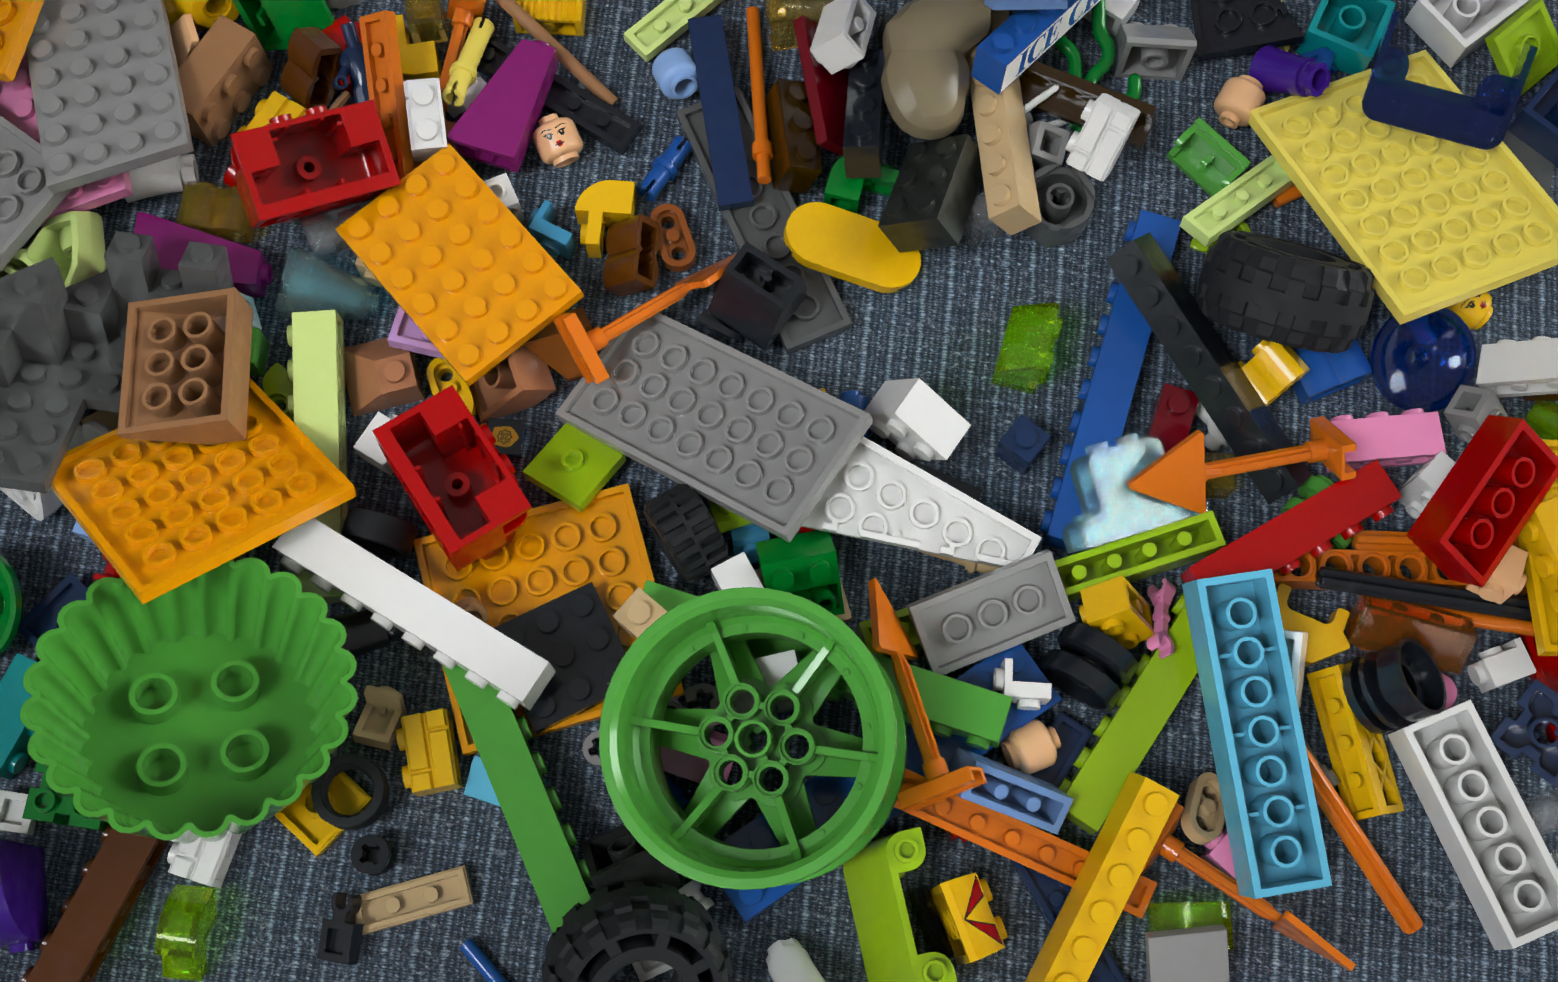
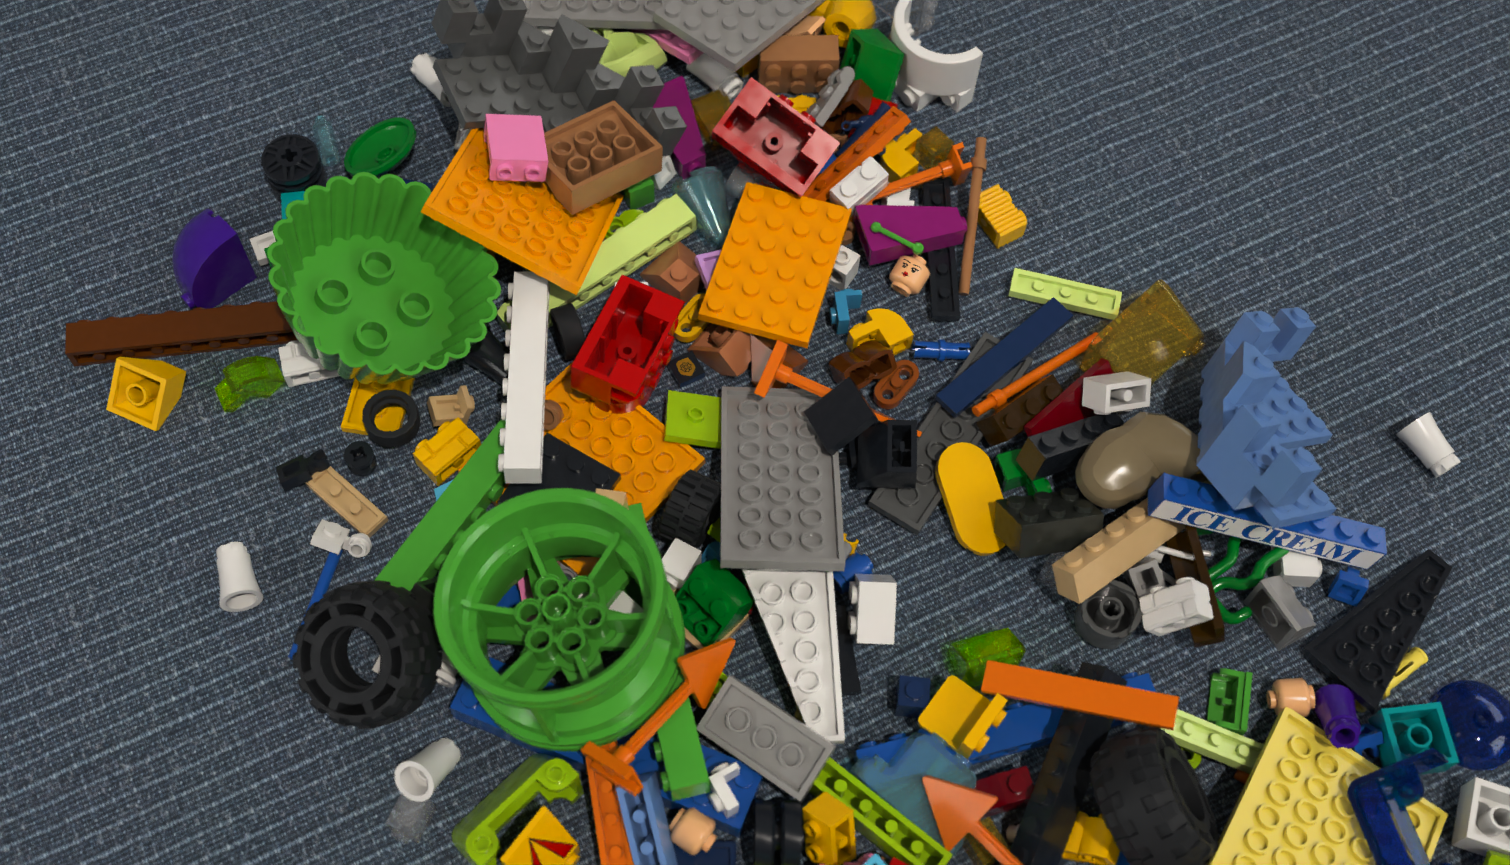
camera: 55 degrees right, 10 degrees down
(119, 446) = (516, 147): none -> bright pink panel
(290, 72) = (831, 94): none -> light grey hinge
(455, 939) = (334, 537): none -> white plate
(464, 70) = (912, 188): light yellow pin -> none
(544, 110) = (917, 248): none -> bright green hinge
(675, 73) = (1011, 314): light blue head -> none
(687, 313) = (840, 416): none -> black tile
(1084, 408) = (962, 716): none -> yellow bracket
(1146, 283) = (1081, 695): none -> orange tile

